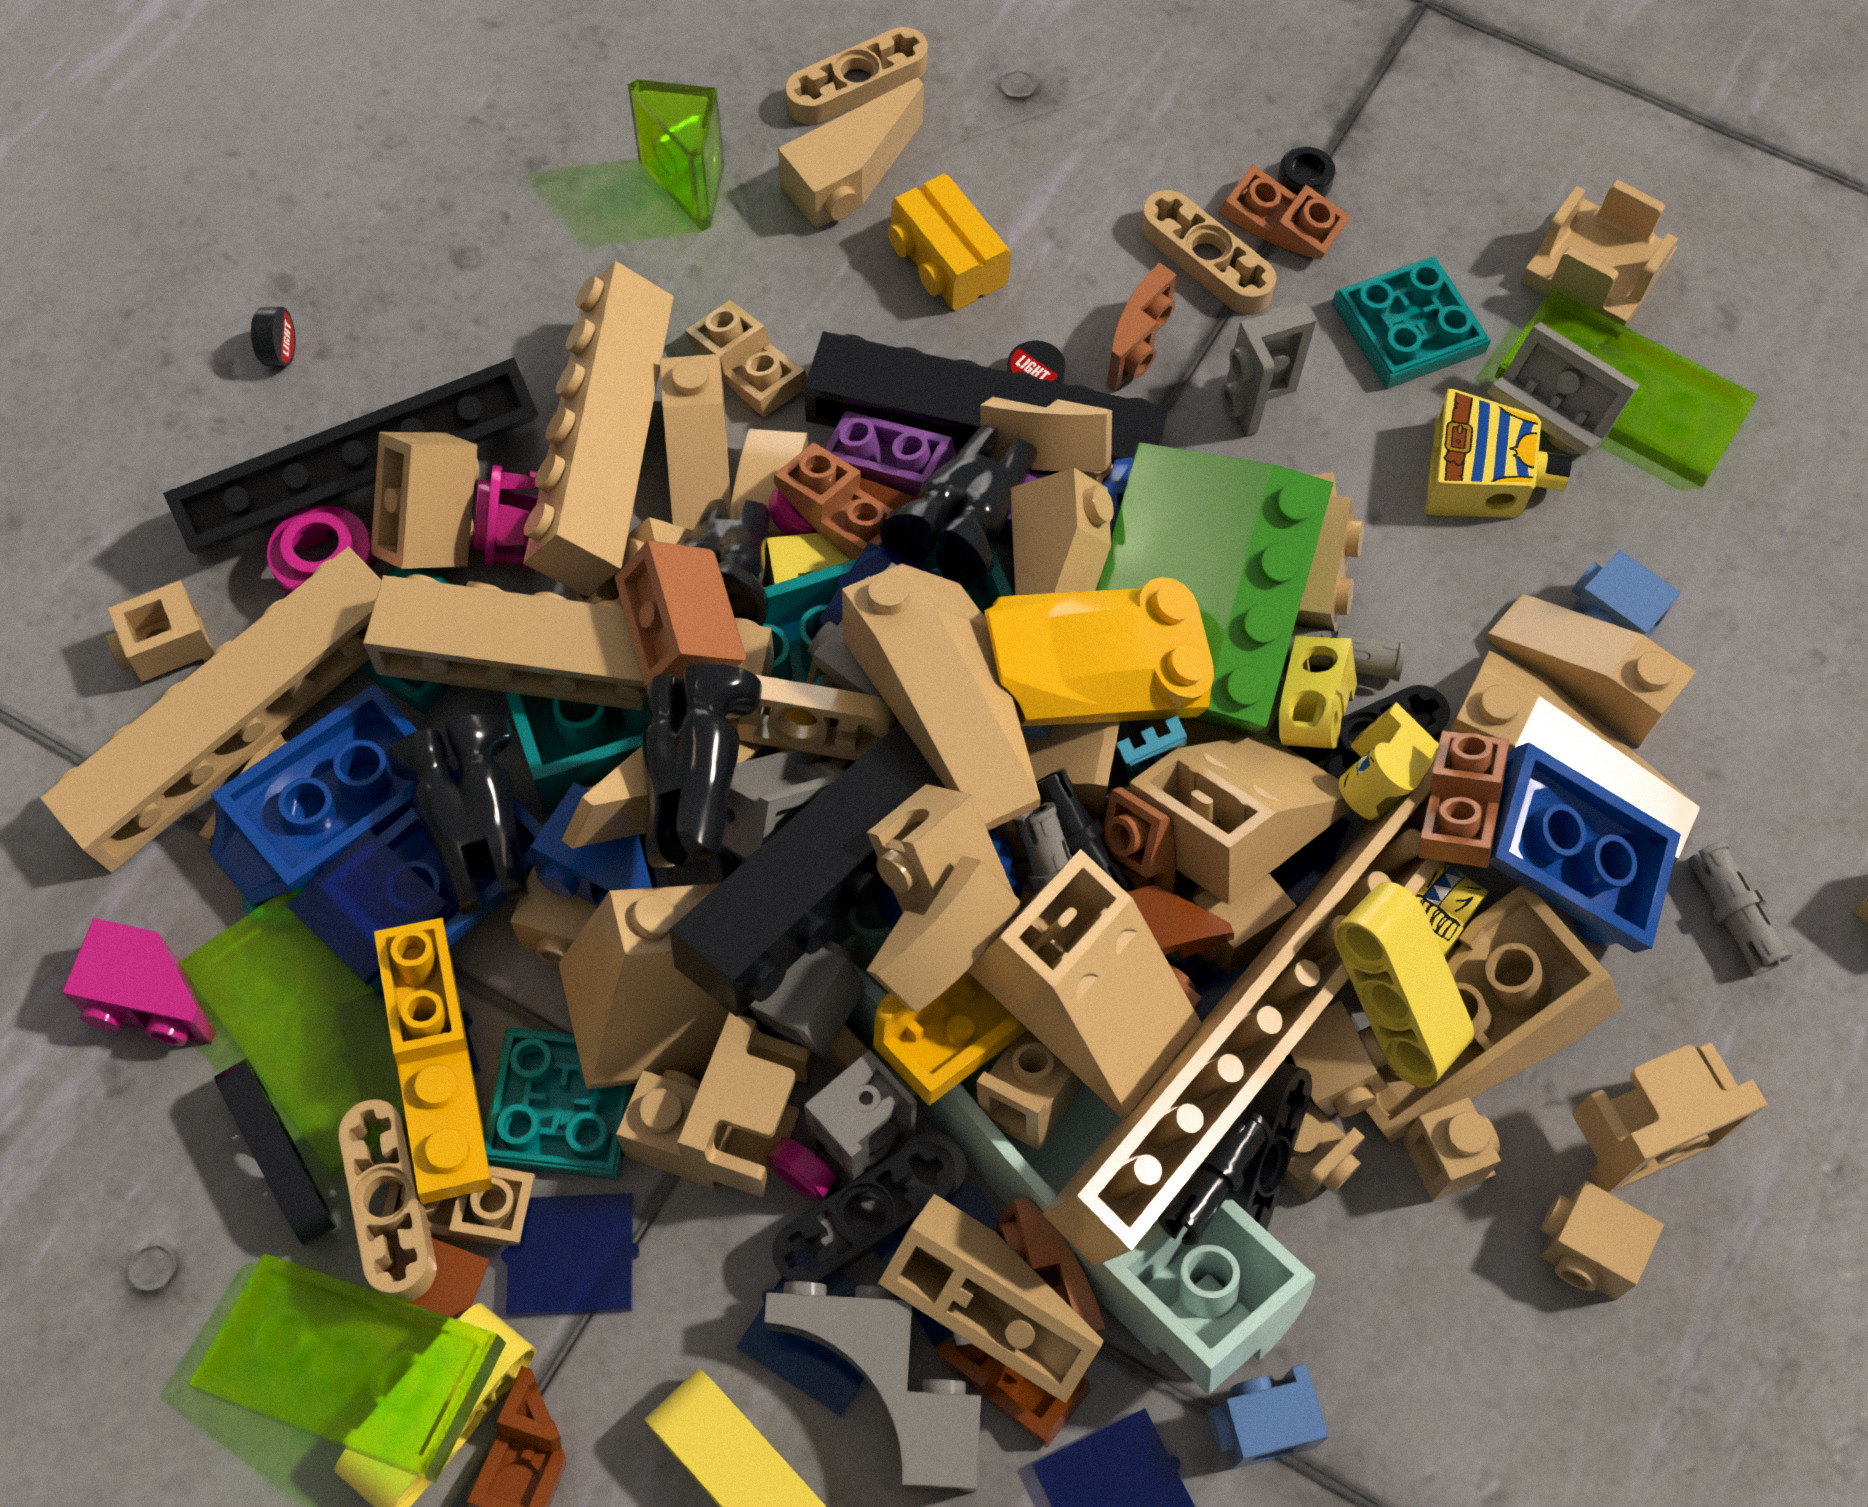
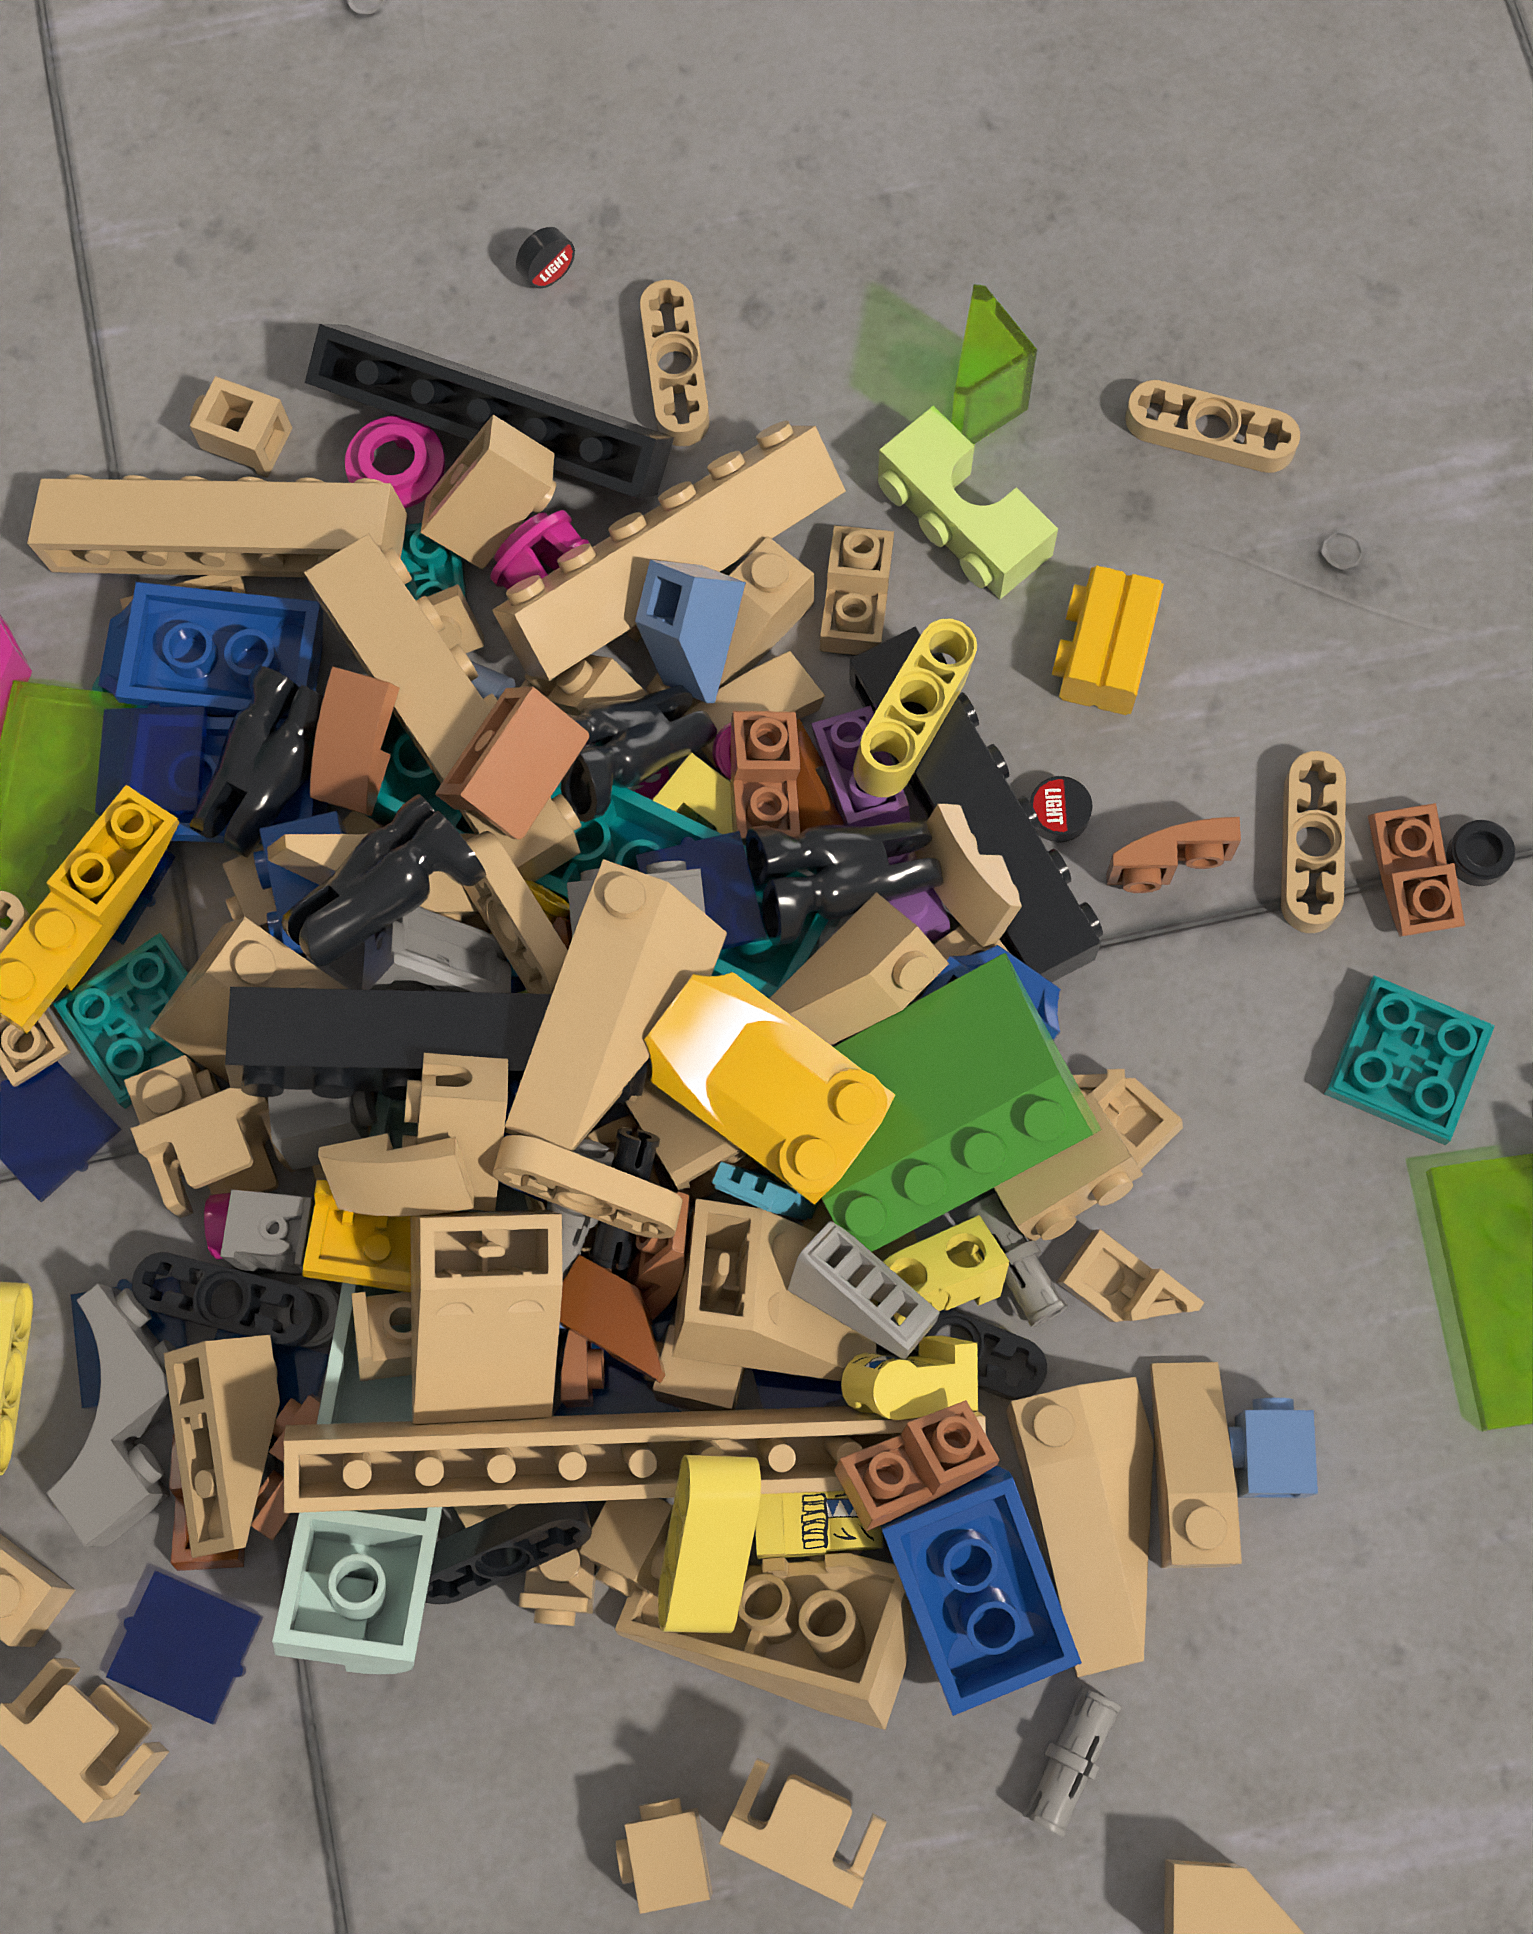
camera: 55 degrees right, 10 degrees up
(439, 306) = (682, 340): none -> tan beam
(532, 723) = (349, 739): none -> nougat slope
(677, 452) = (689, 624): none -> medium blue slope
(798, 253) = (994, 541): none -> yellowish green arch
(845, 159) = (1115, 494): tan slope -> none
(893, 366) = (918, 681): none -> light yellow beam
(1068, 821) = (587, 1186): none -> tan beam
(1215, 1179) = (430, 1527): black pin -> none
(1266, 362) = (1224, 976): light grey bracket -> none
(1268, 1419) = (315, 1713): medium blue brick -> none
(1299, 733) = (843, 1277): none -> light grey slope
(1415, 606) = (1121, 1284): none -> tan slope
(1461, 1144) = (647, 1689): tan brick -> none
(1488, 459) = (1316, 1233): torso -> none
(1566, 389) = (1438, 1242): light grey bracket -> none

